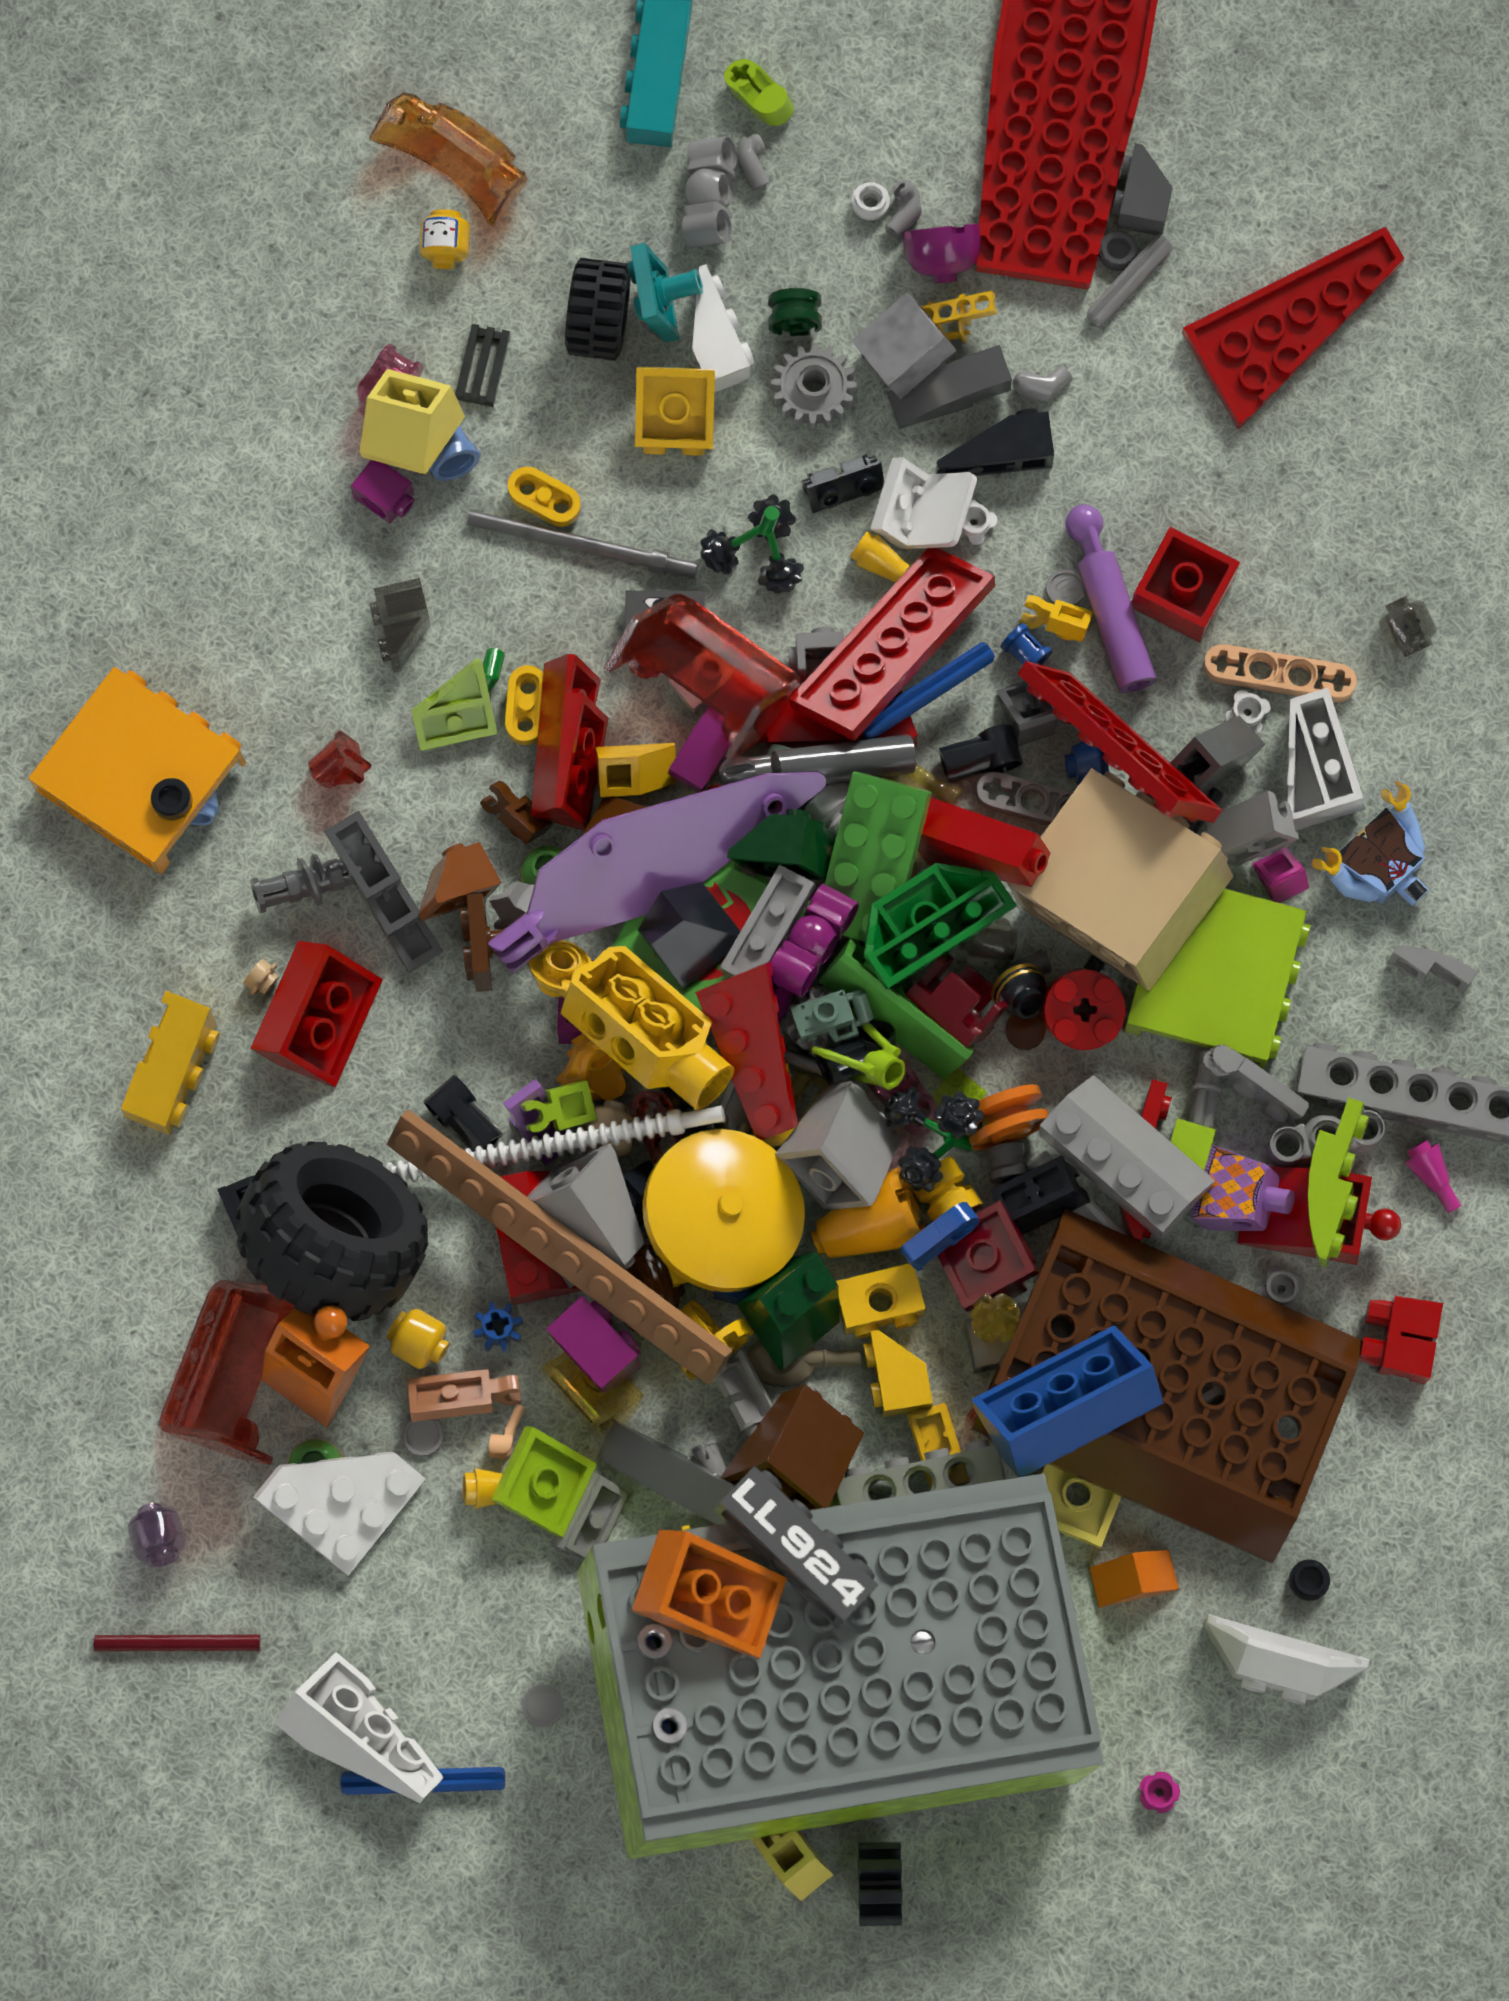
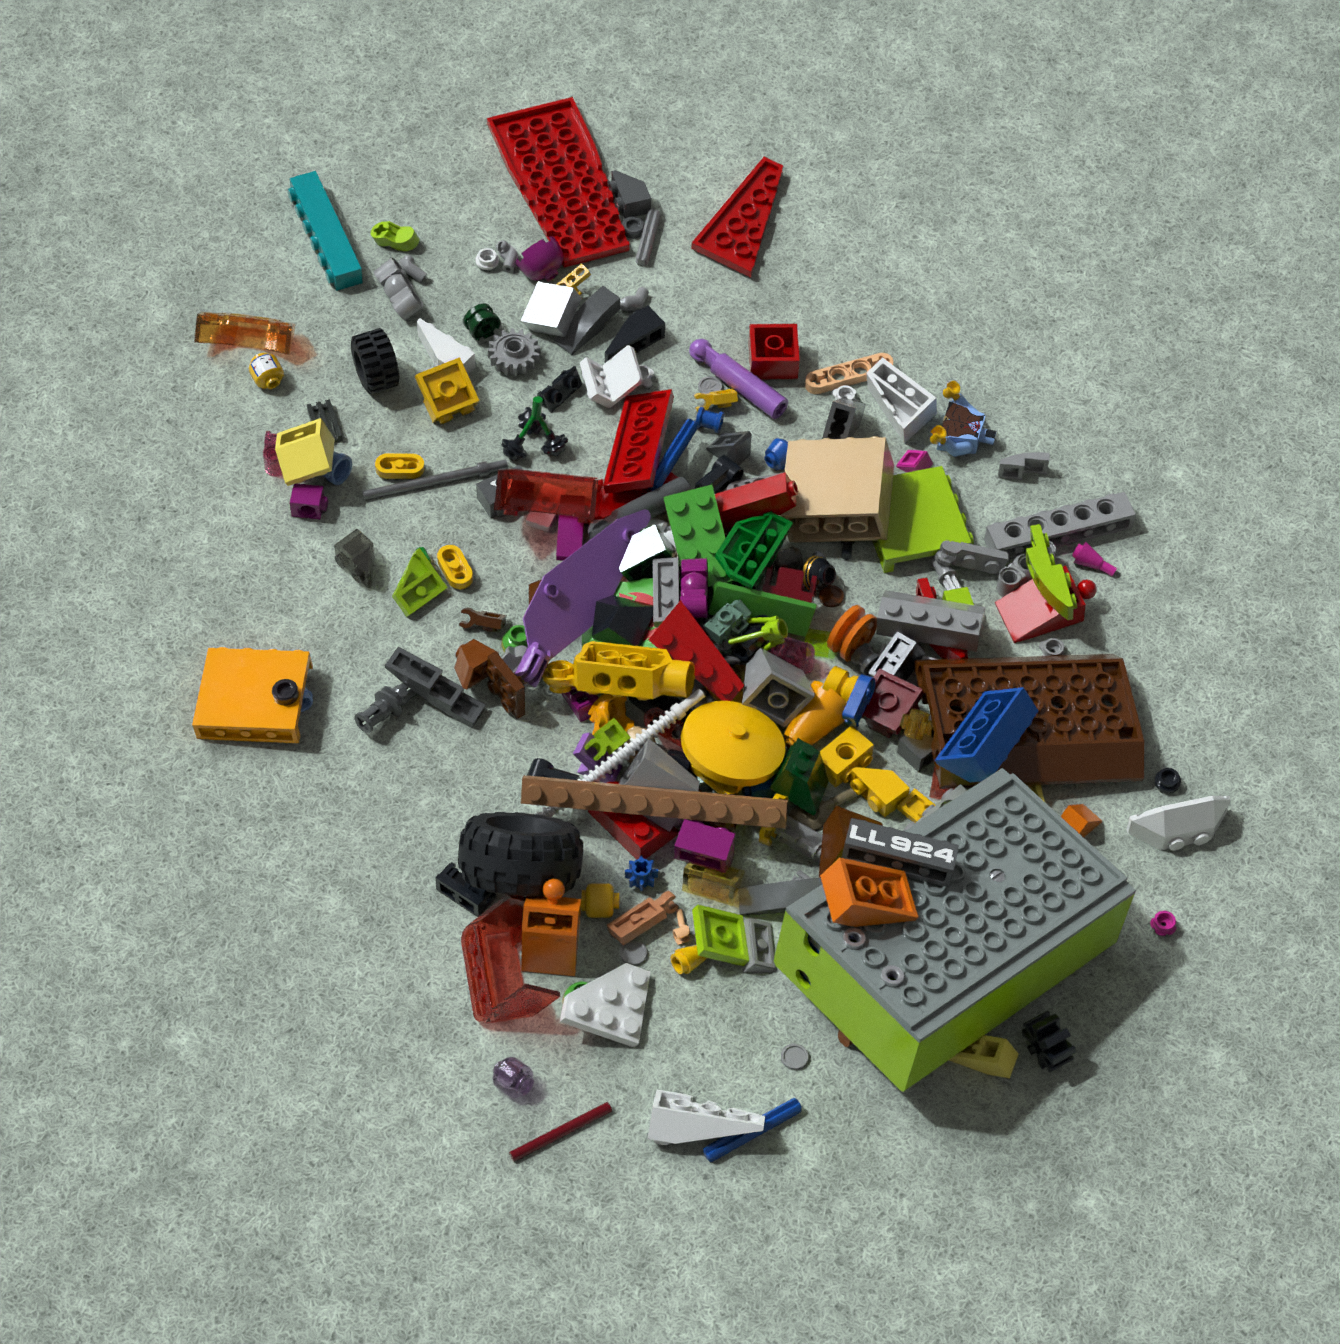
camera: 30 degrees left, 20 degrees down
(171, 1064) = (366, 828): yellow wedge -> none
(261, 978) = (390, 766): tan plate -> none
(316, 1012) = (433, 767): red slope -> none
(339, 763) = (367, 641): clear red piece -> none
(567, 743) = (489, 570): red slope -> none
(634, 768) = (533, 567): yellow slope -> none
(659, 290) = (403, 340): teal plate -> none
(812, 646) = (596, 465): light grey bracket -> none
(878, 557) = (602, 414): yellow cone -> none
(956, 1118) = (830, 666): black plant -> none
(1099, 1025) = (858, 564): red brick -> none
(1119, 742) = (789, 425): red plate -> none
(1241, 1194) = (1002, 611): medium lavender torso -> none
(1253, 828) = (896, 434): light grey hinge -> none
(1407, 626) = (900, 321): clear smoke head -> none
(1408, 1337) = (1135, 638): red hips -> none

